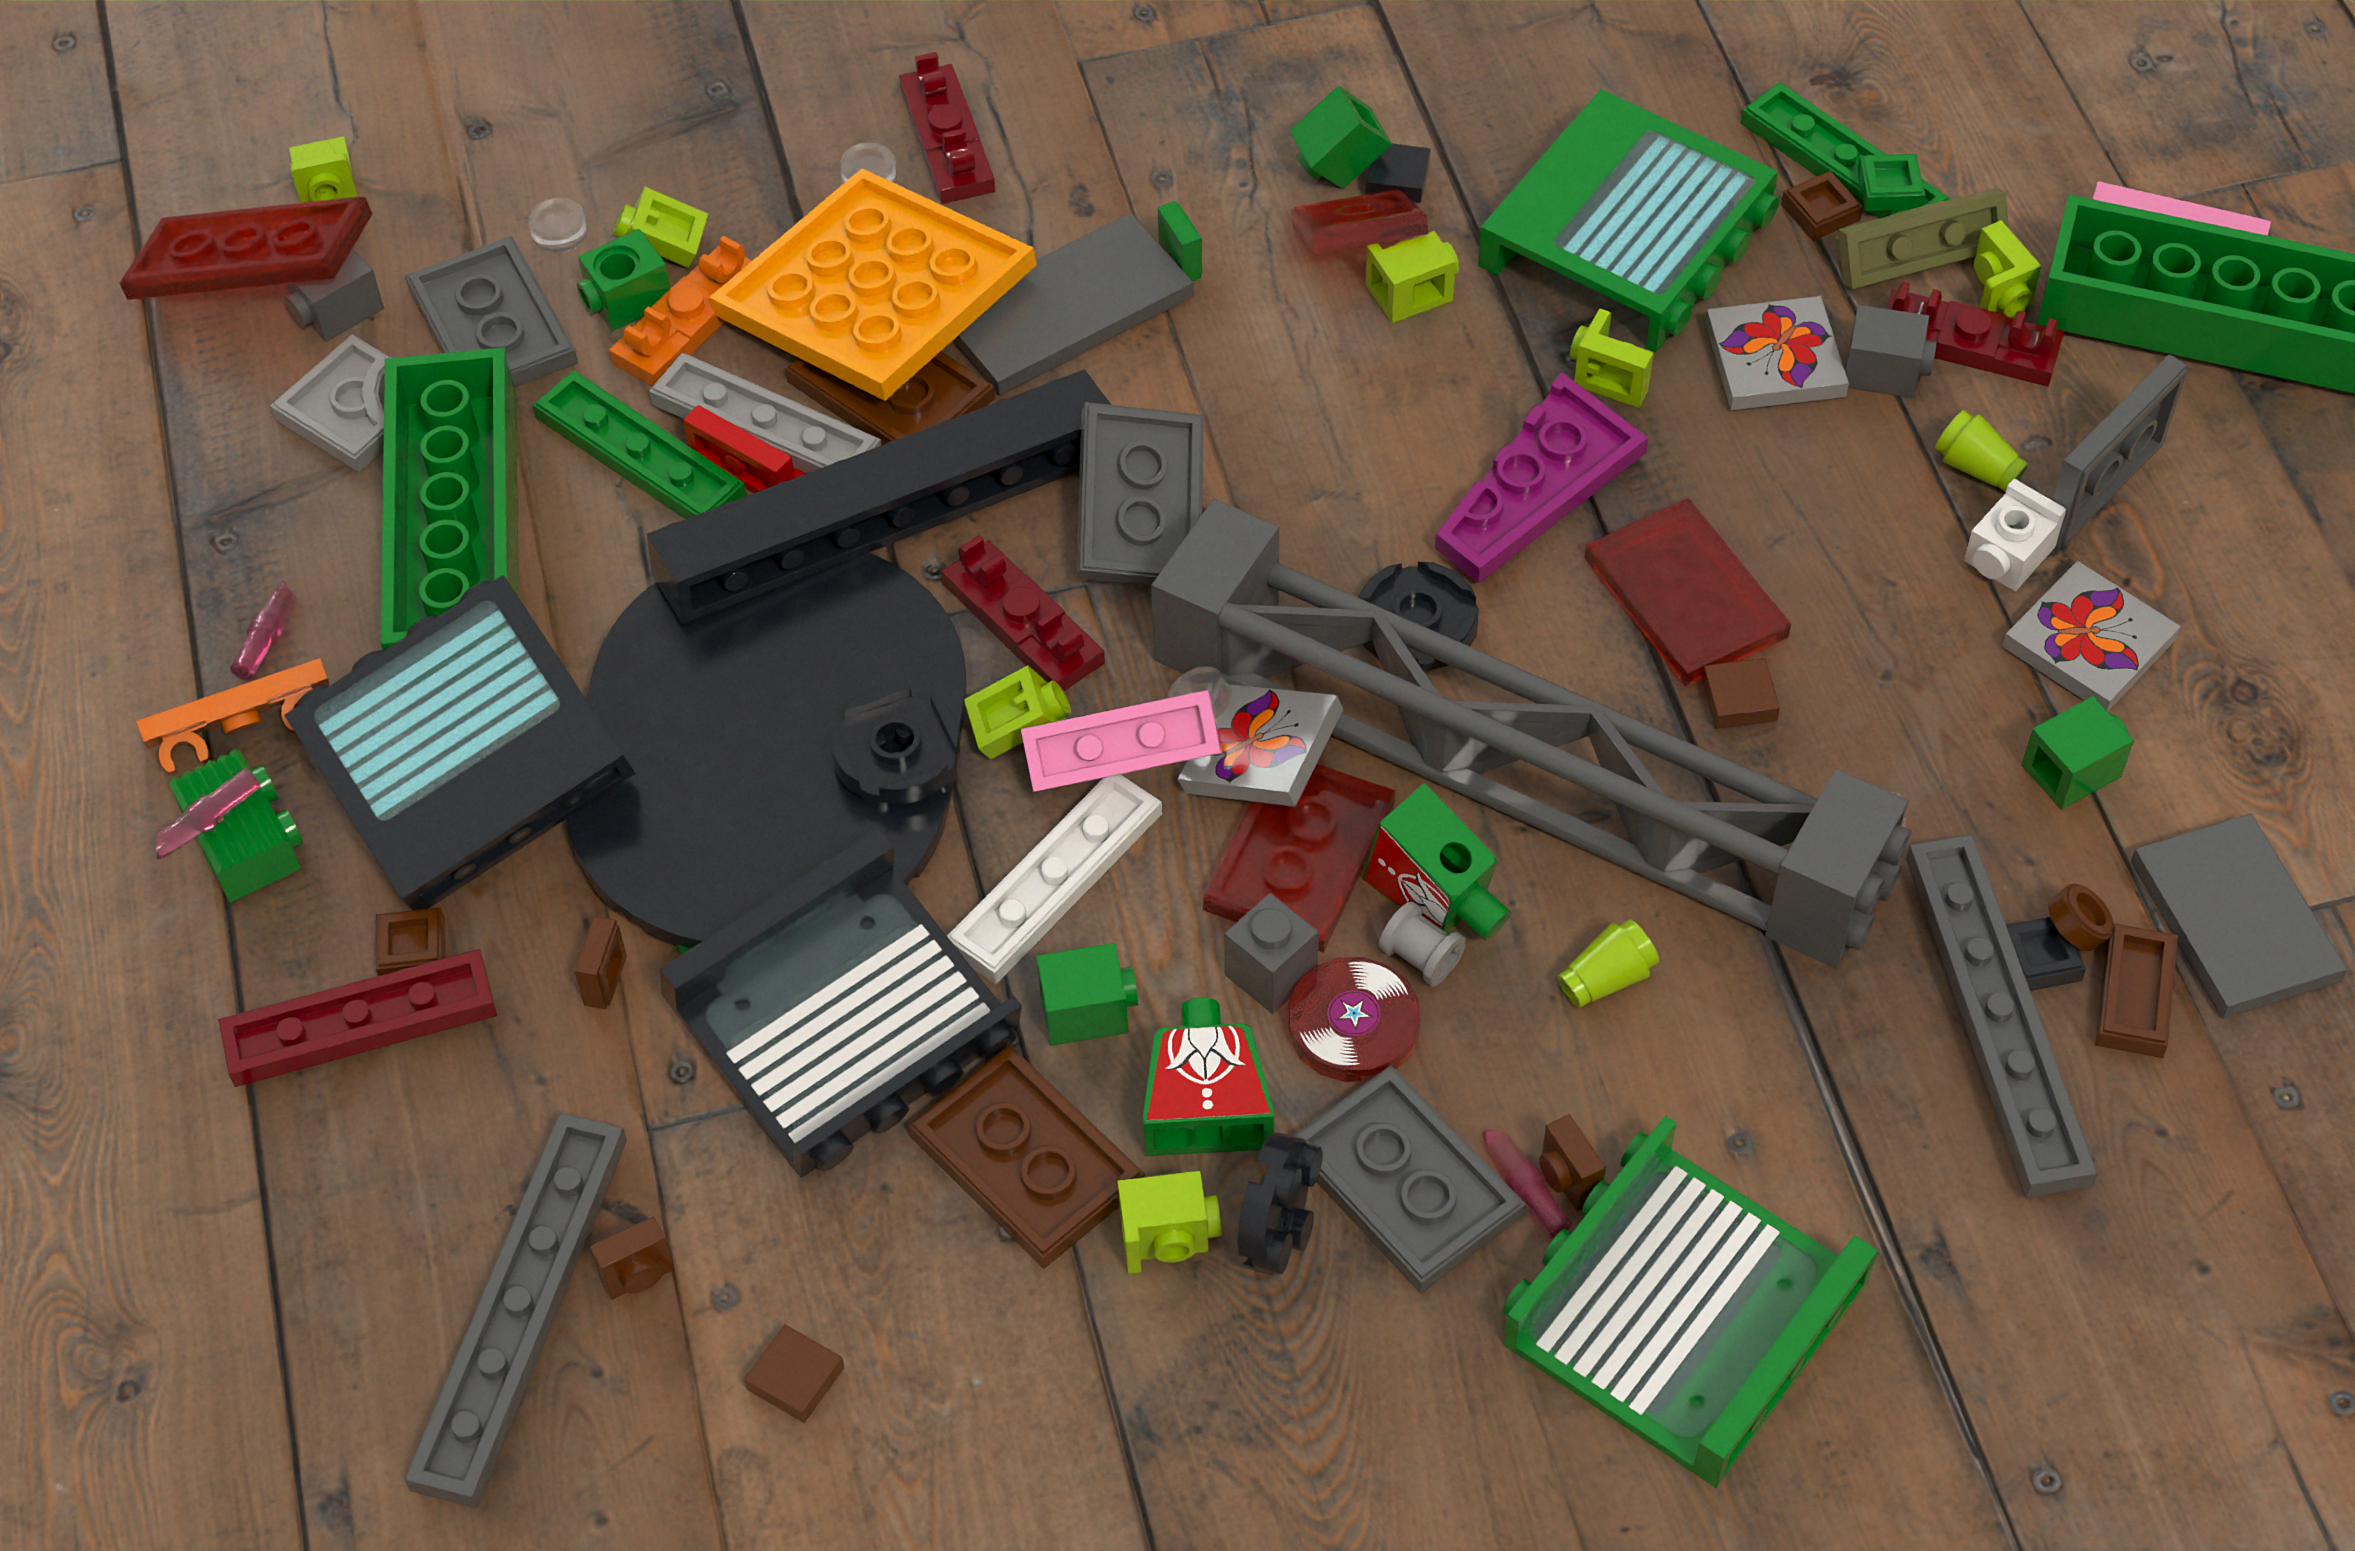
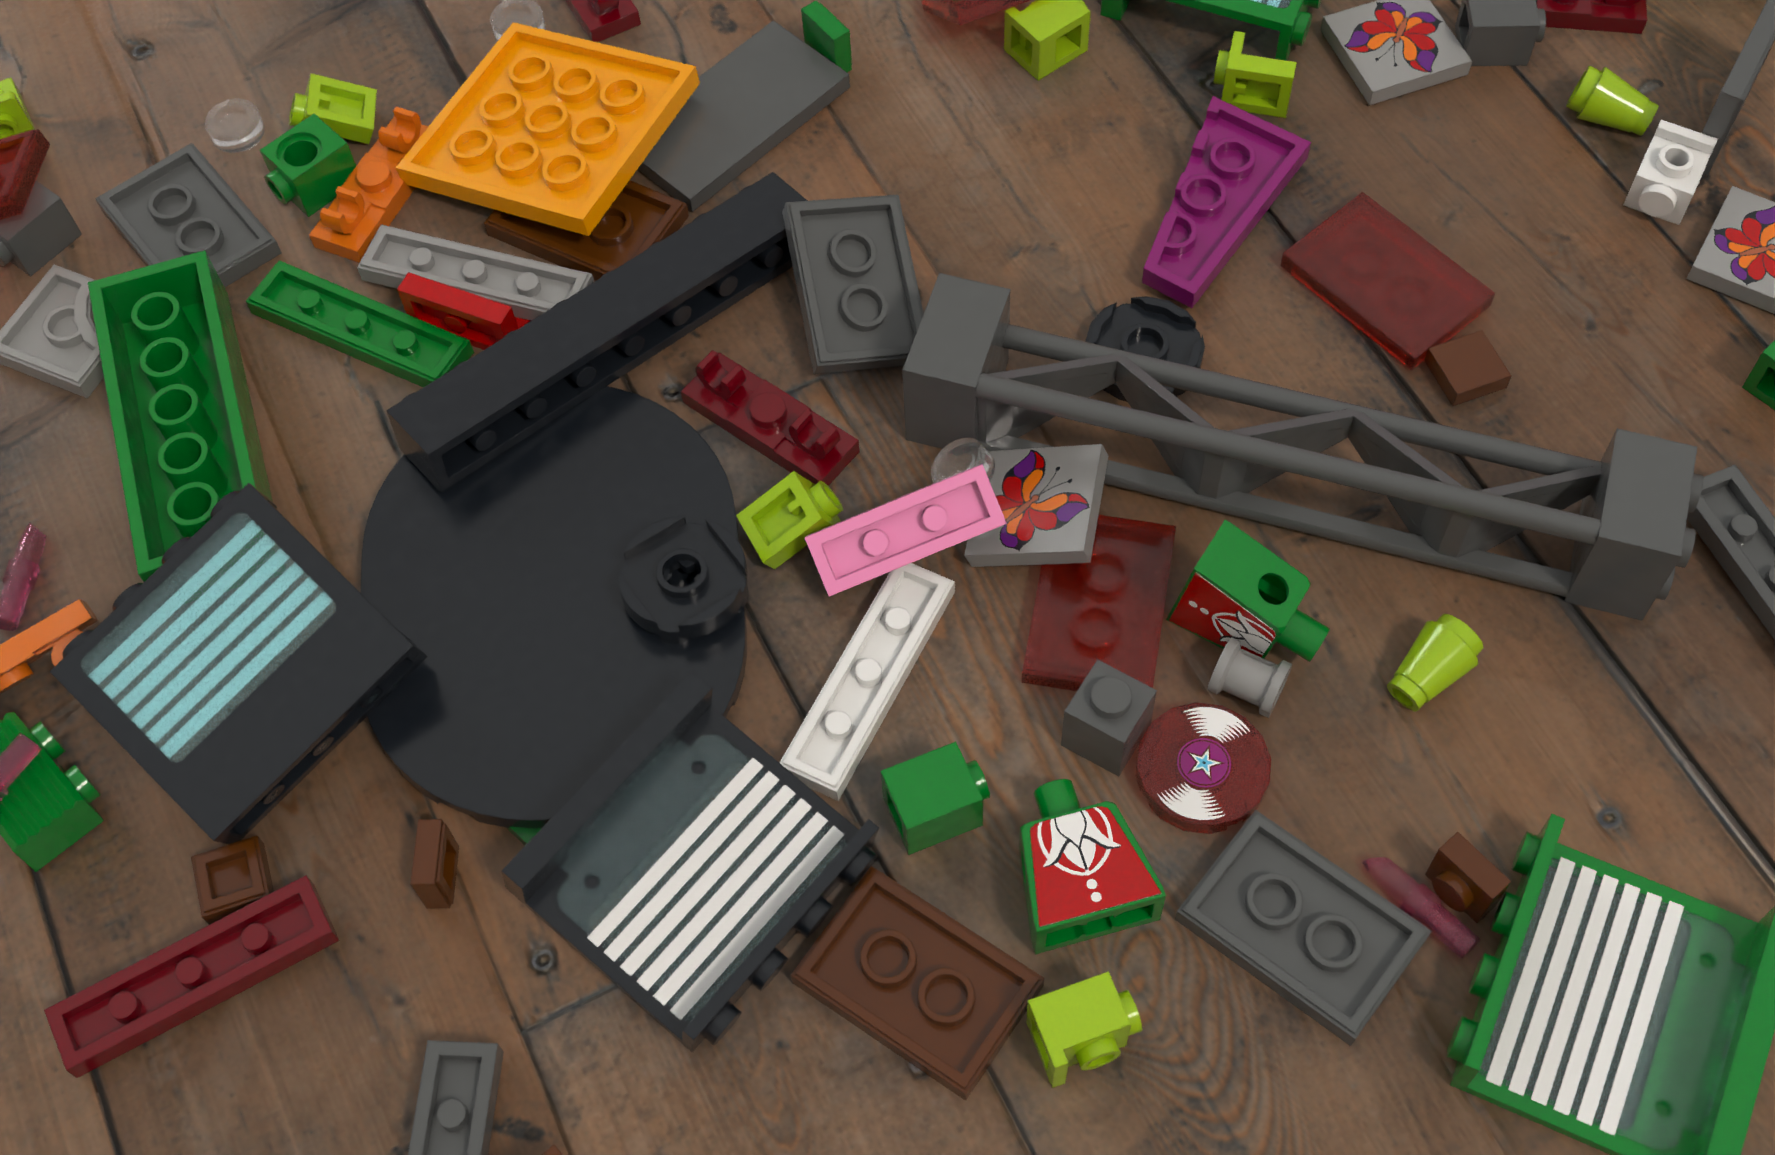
camera: 10 degrees left, 5 degrees up
(1274, 1210) = (1200, 992): black plate -> none

